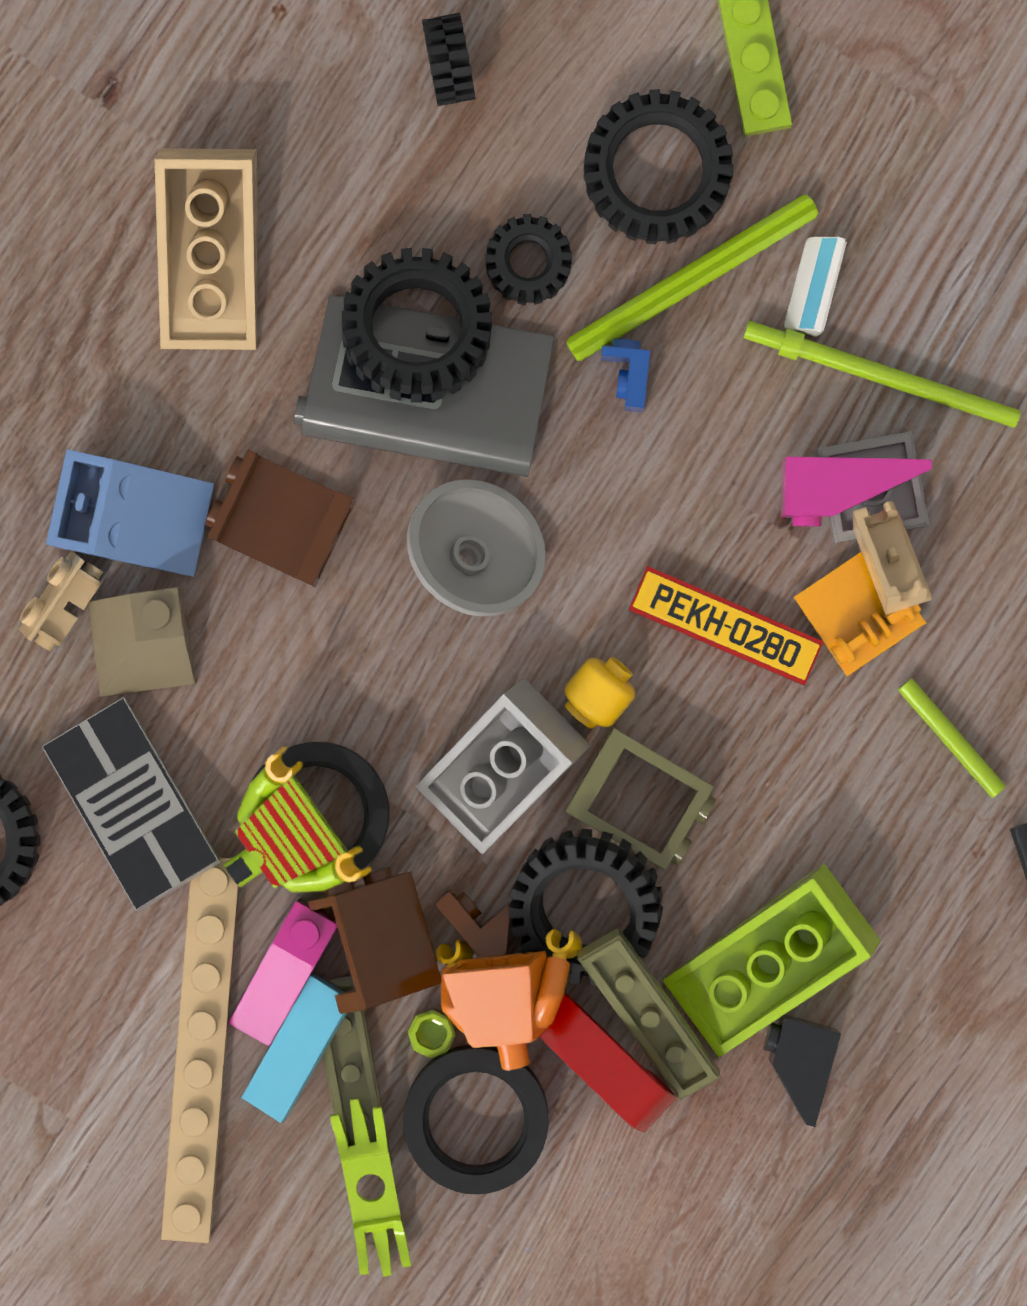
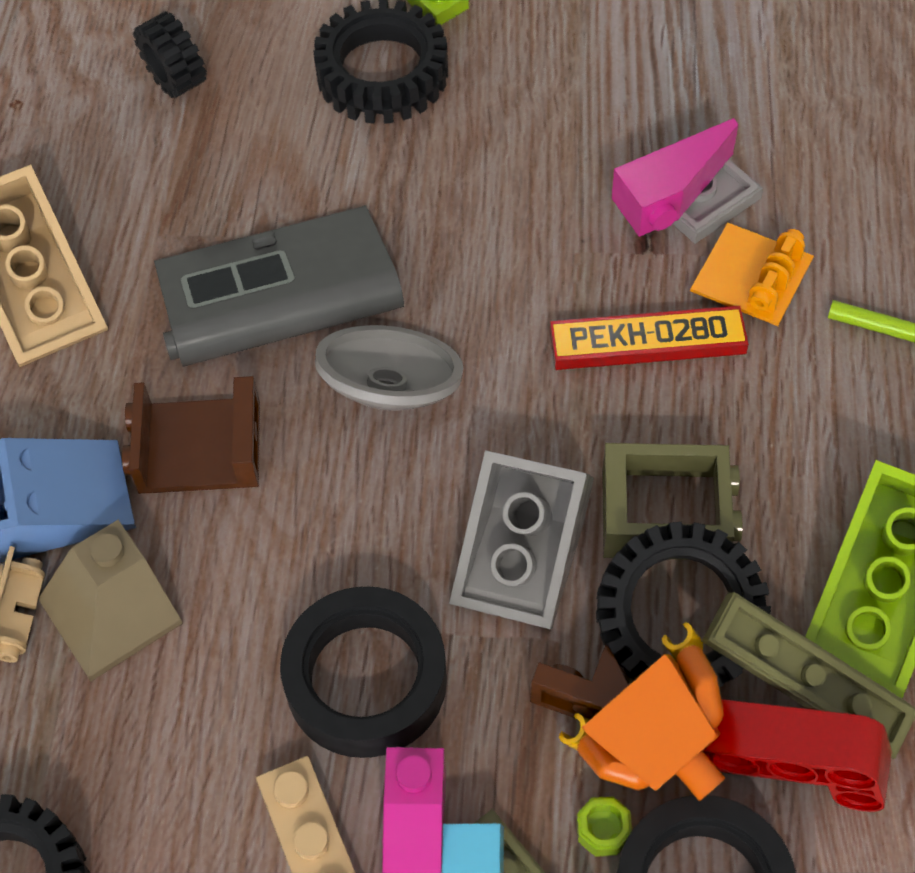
camera: 25 degrees left, 30 degrees down
(131, 804) = (168, 758): black tile -> none
(288, 835) = (343, 679): torso -> none
(381, 939) = (502, 740): reddish brown panel -> none
(410, 273) = (249, 260): black tyre -> none
(528, 230) = (306, 142): black tyre -> none
(599, 692) = (572, 432): yellow head -> none
(631, 382) = (446, 188): blue bracket -> none
(692, 277) = (451, 122): lime axle -> none
(793, 345) = (566, 124): lime bar -> none
(815, 285) = (557, 79): white slope -> none
(890, 558) = (749, 209): tan hinge -> none

